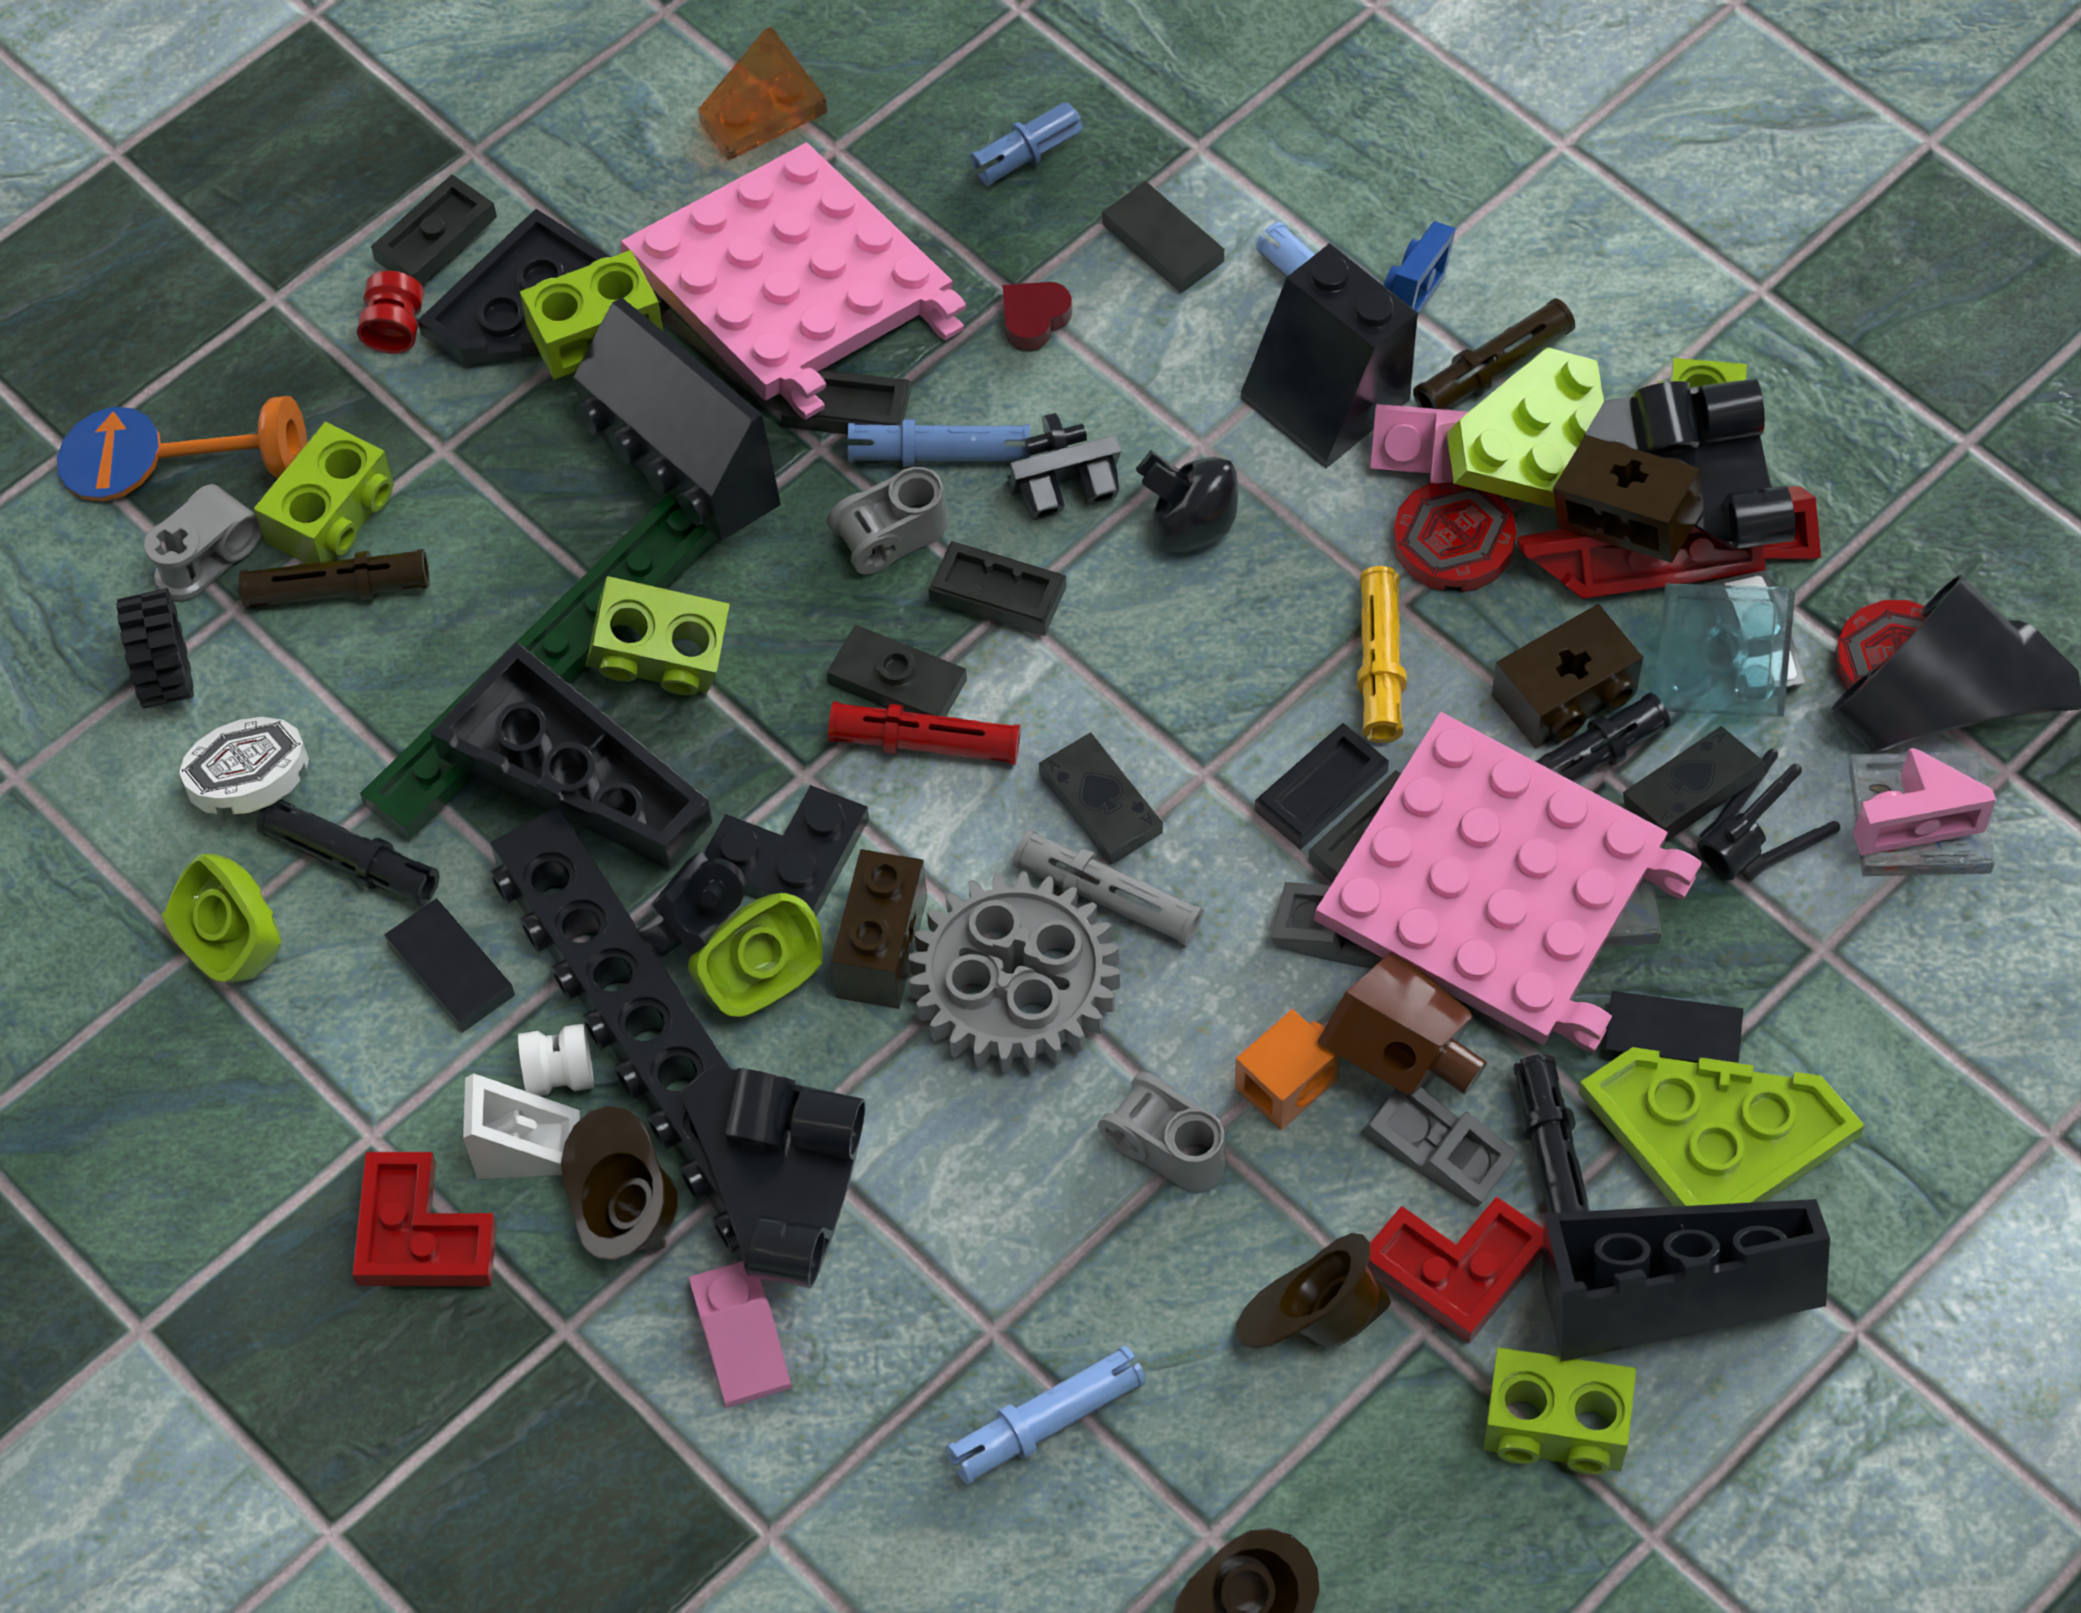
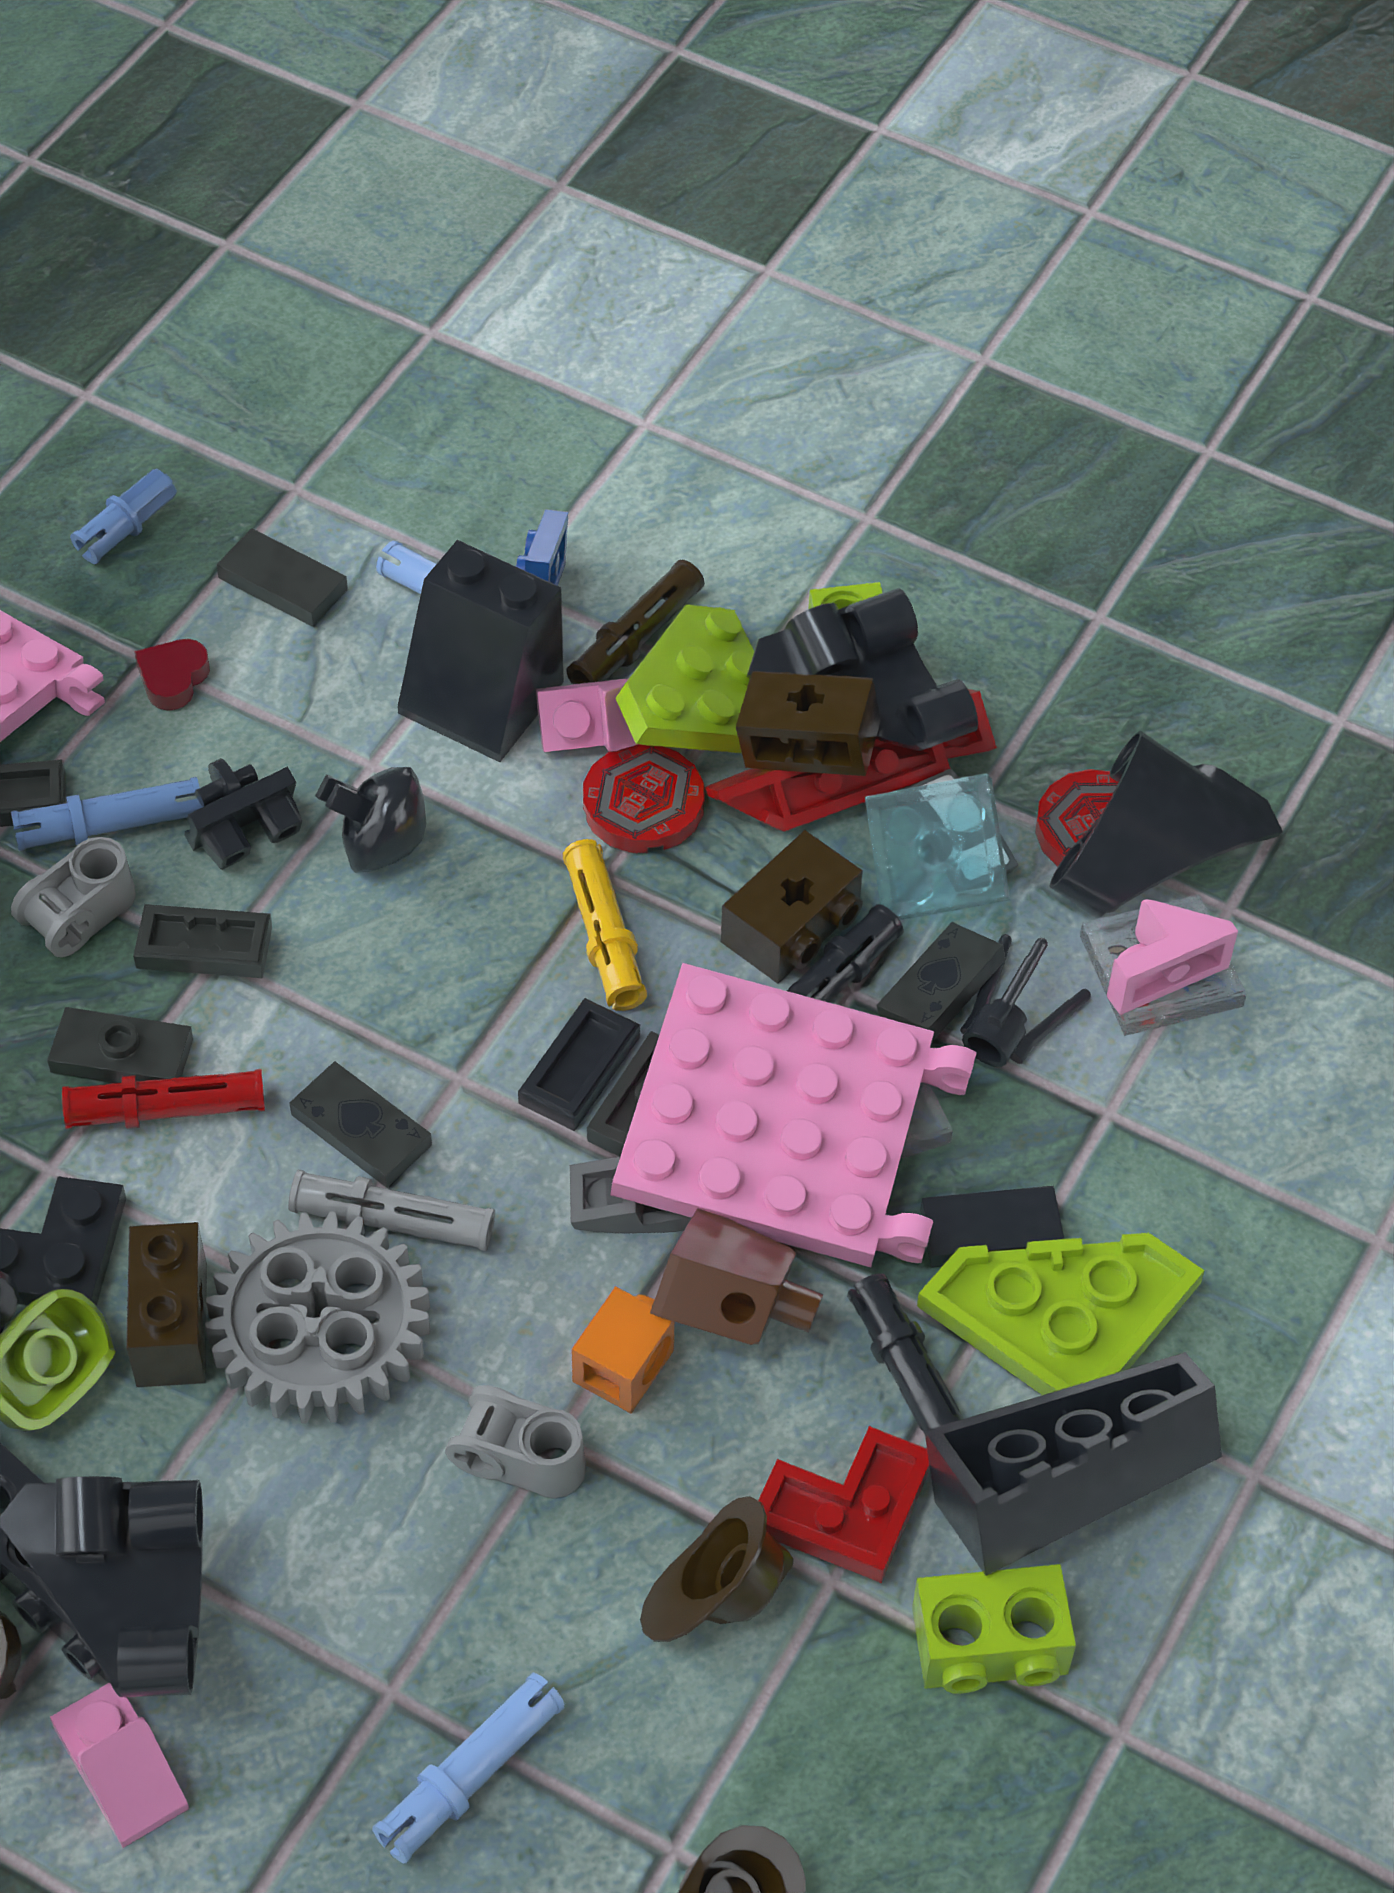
camera: 20 degrees left, 5 degrees down
(1439, 1145) = (798, 1391): dark grey slope -> none

